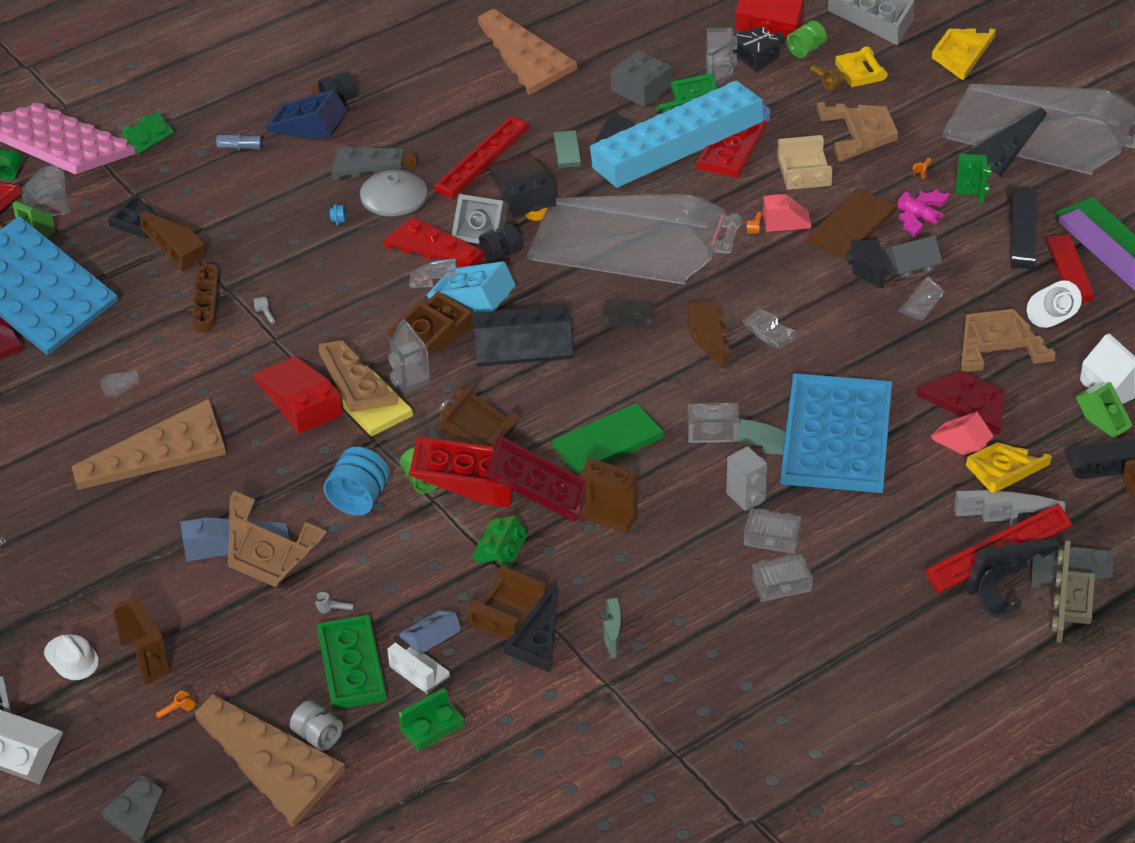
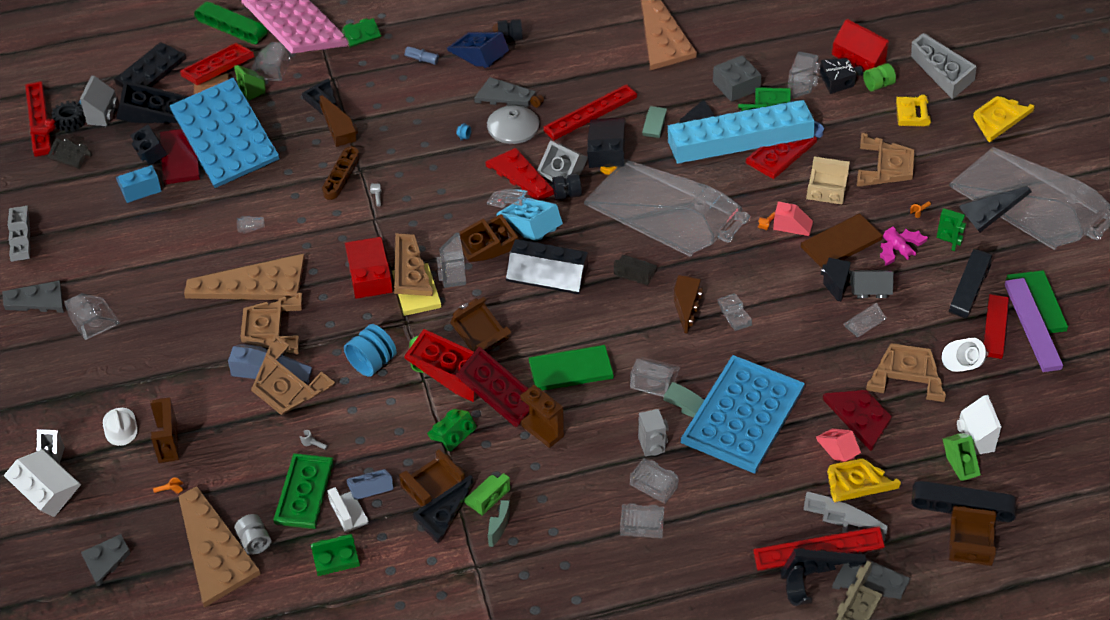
camera: 20 degrees right, 5 degrees up
(198, 490) = (264, 321): none -> medium nougat wing
(581, 600) = (488, 493): none -> bright green panel
(831, 78) = (884, 115): pearl gold bar -> none

